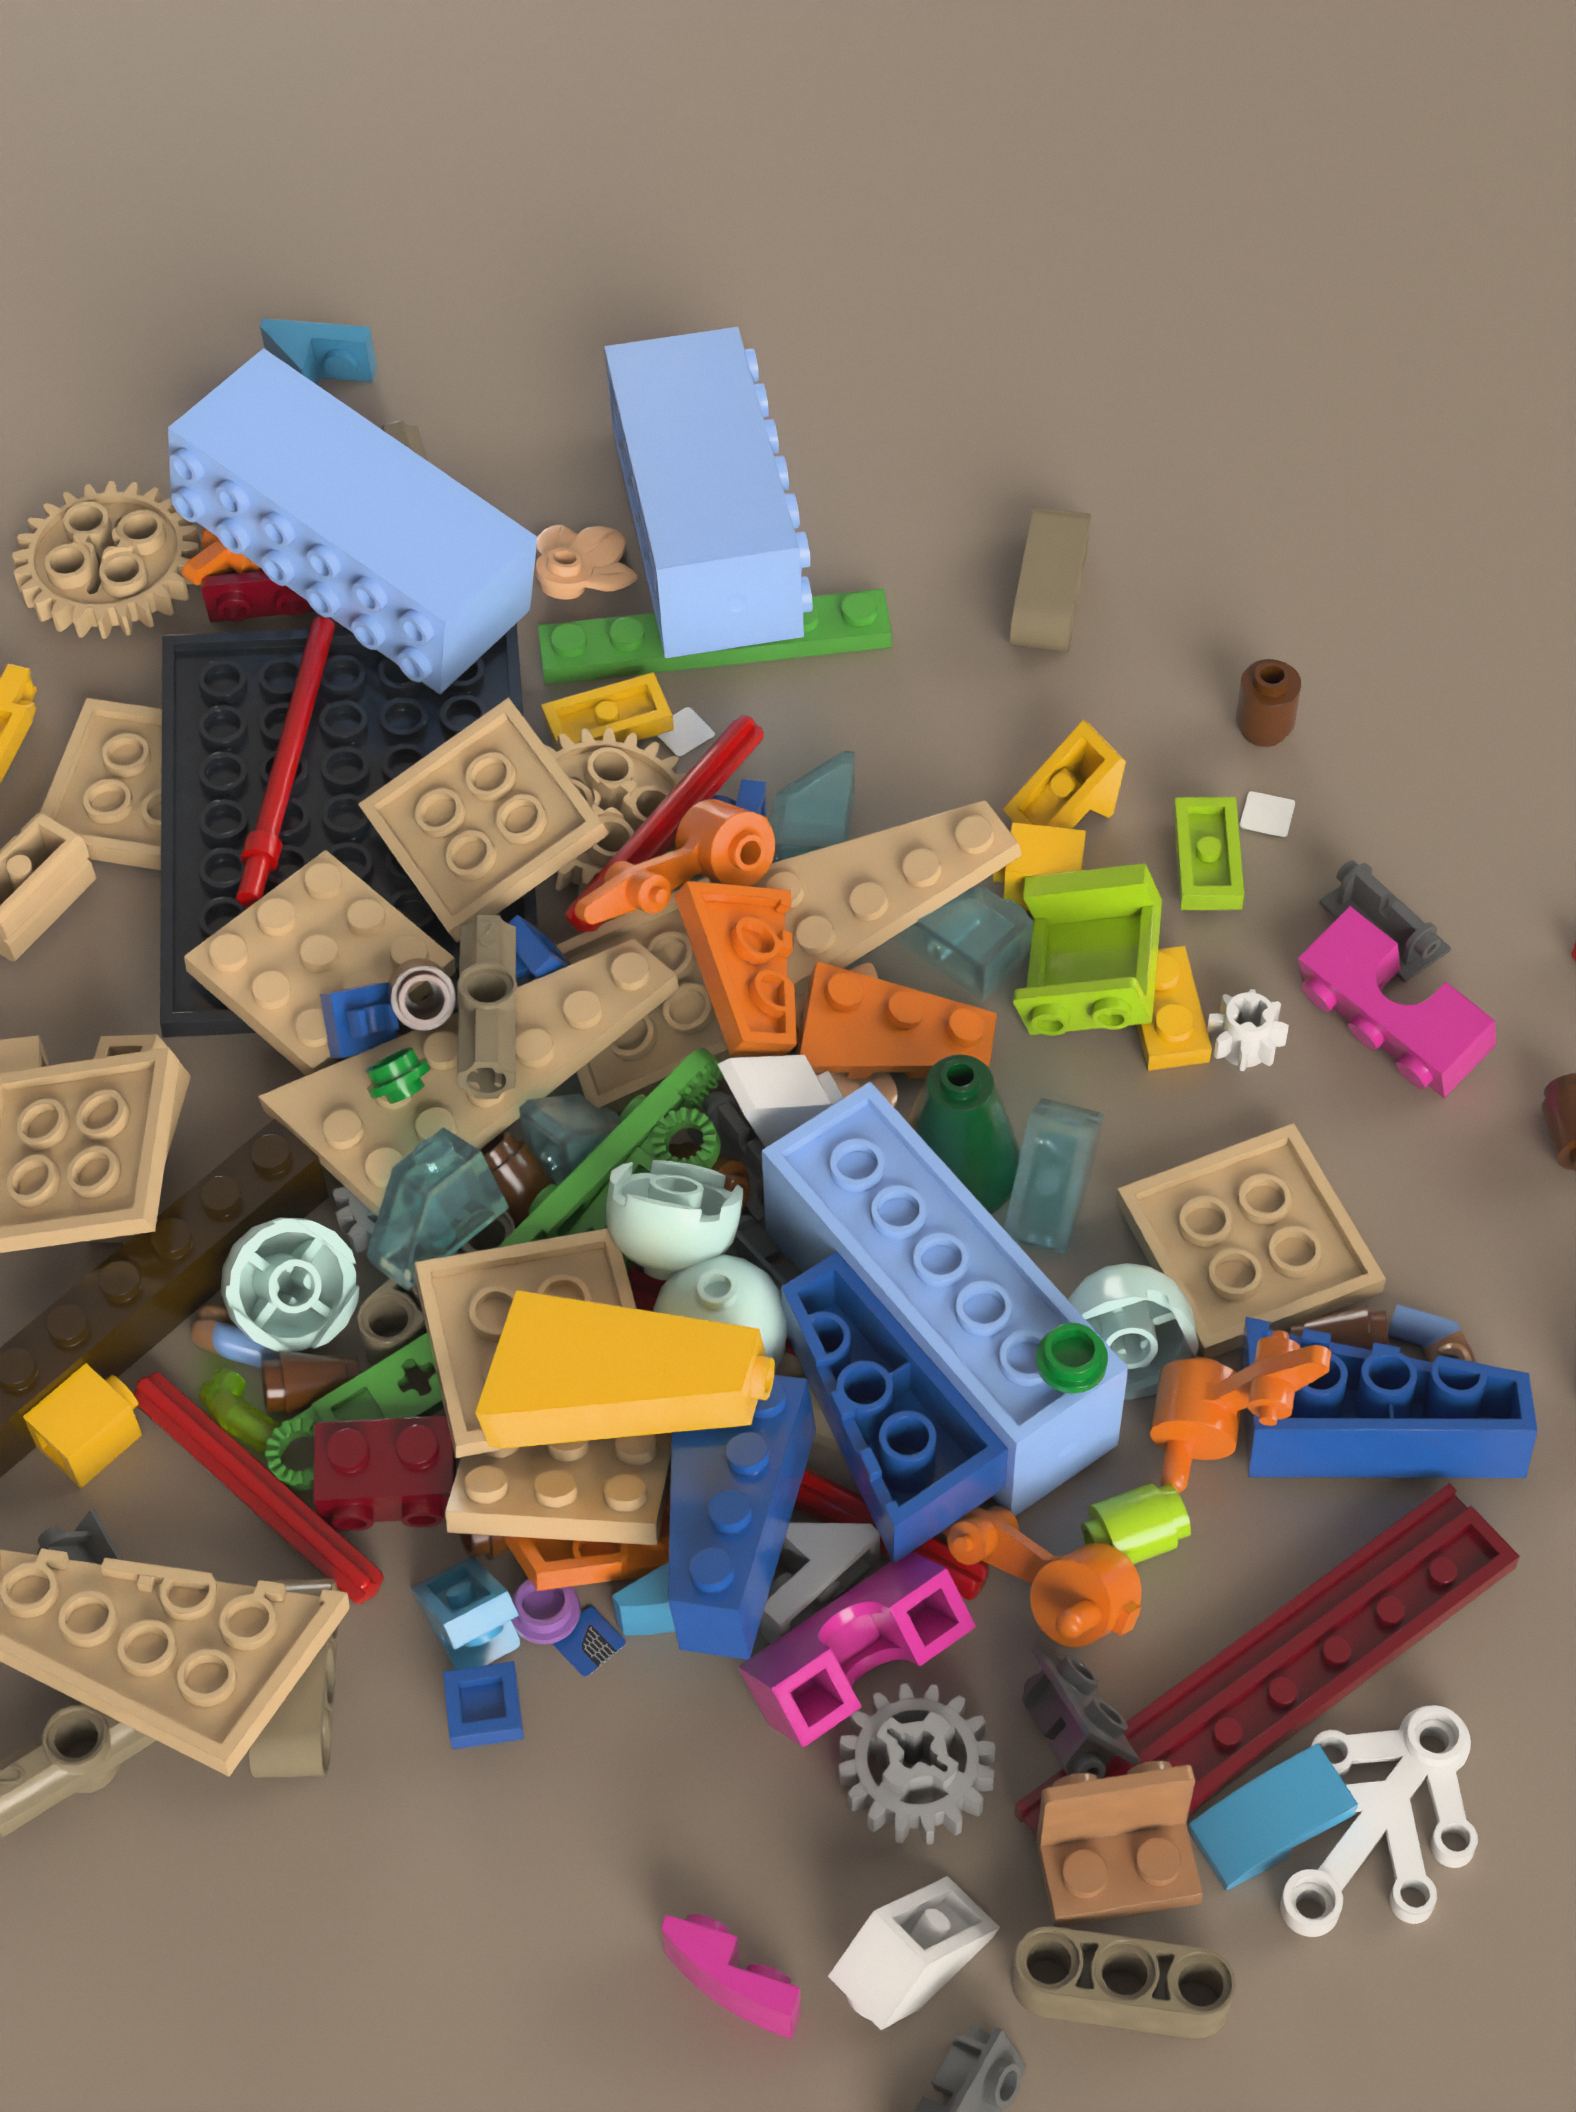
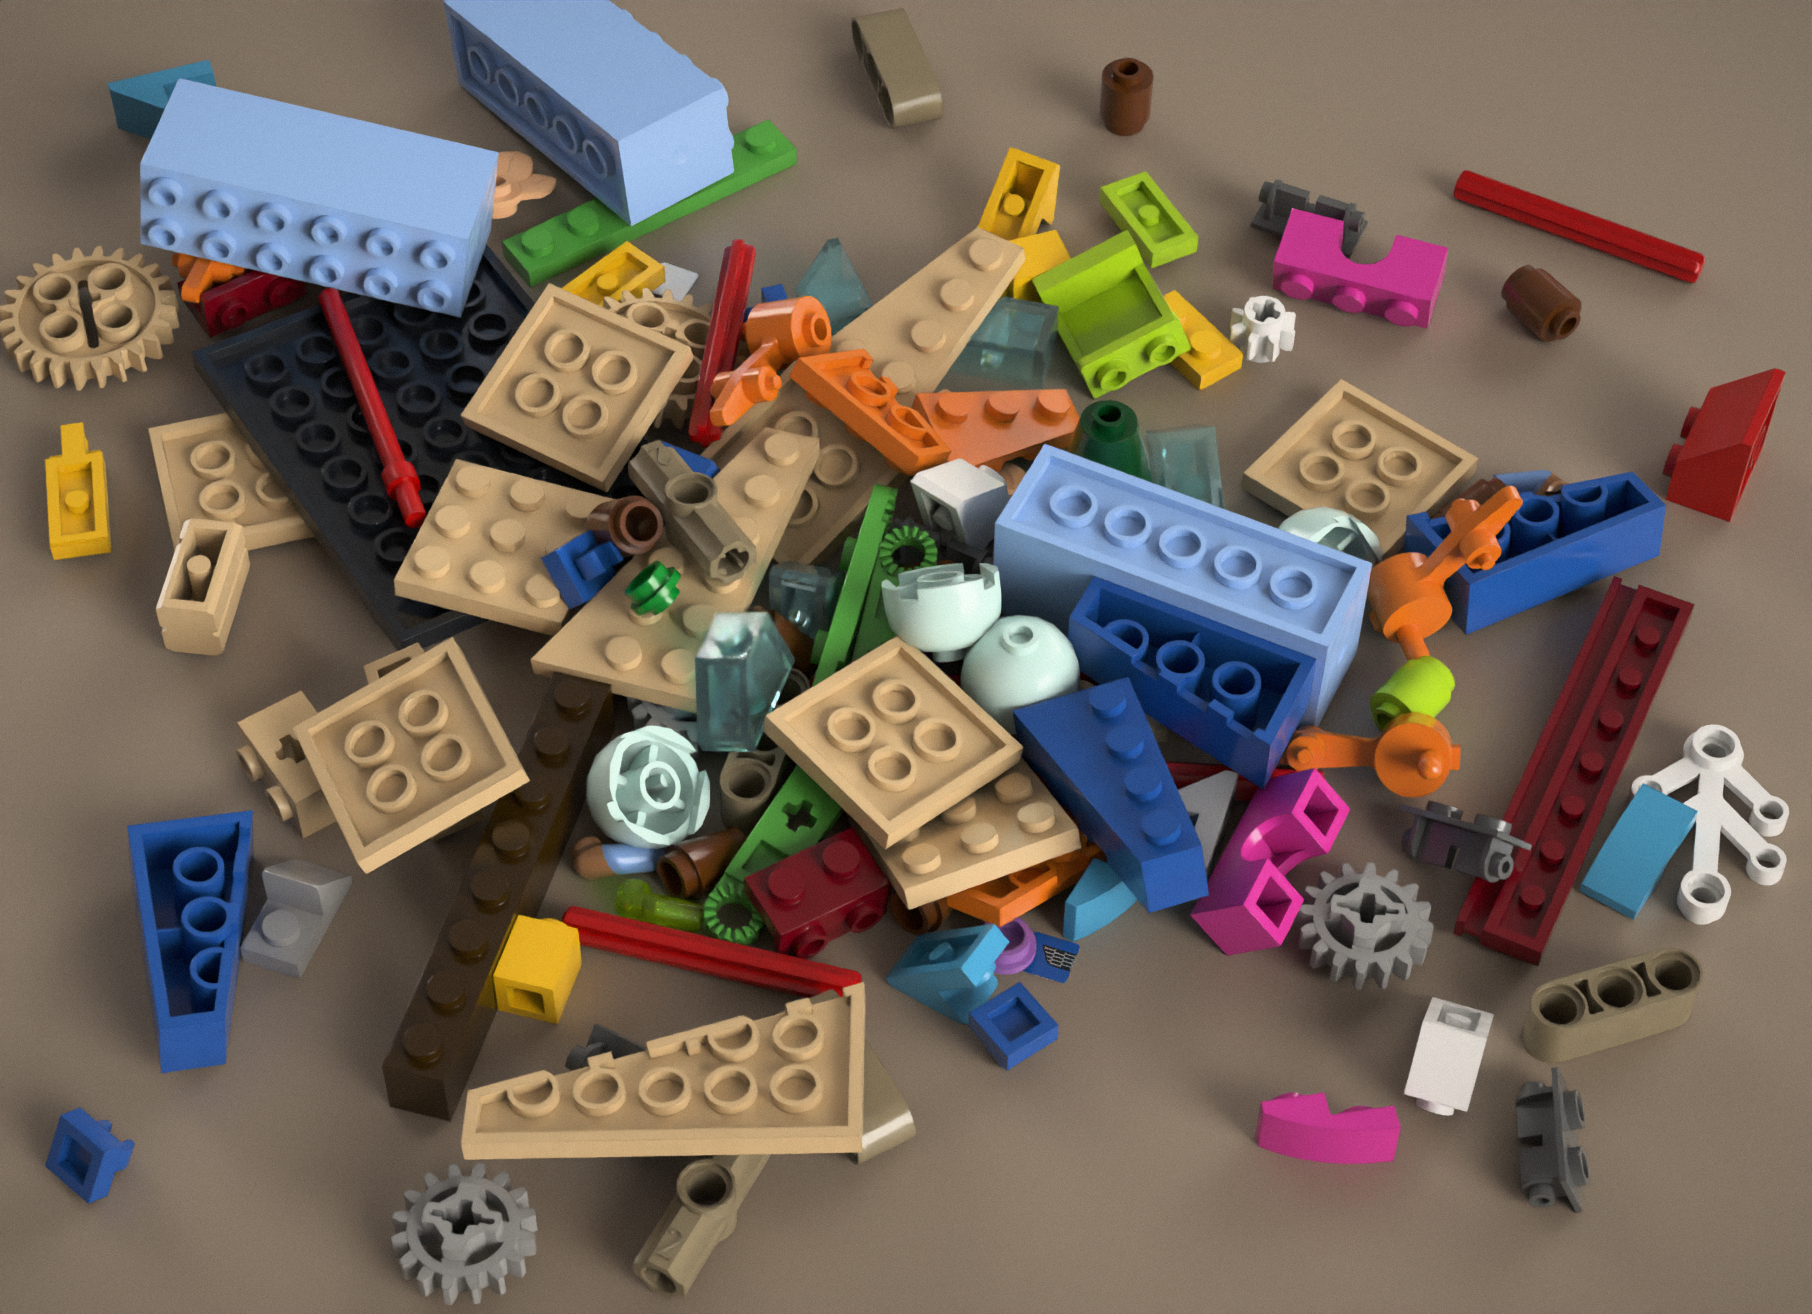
camera: 30 degrees left, 5 degrees down
(616, 1372) = (993, 720): yellow slope -> none
(1072, 1358) = (1333, 567): green plate -> none
(1118, 1844) = (1555, 906): medium nougat bracket -> none
(1267, 814) = (1171, 179): white sticker -> none

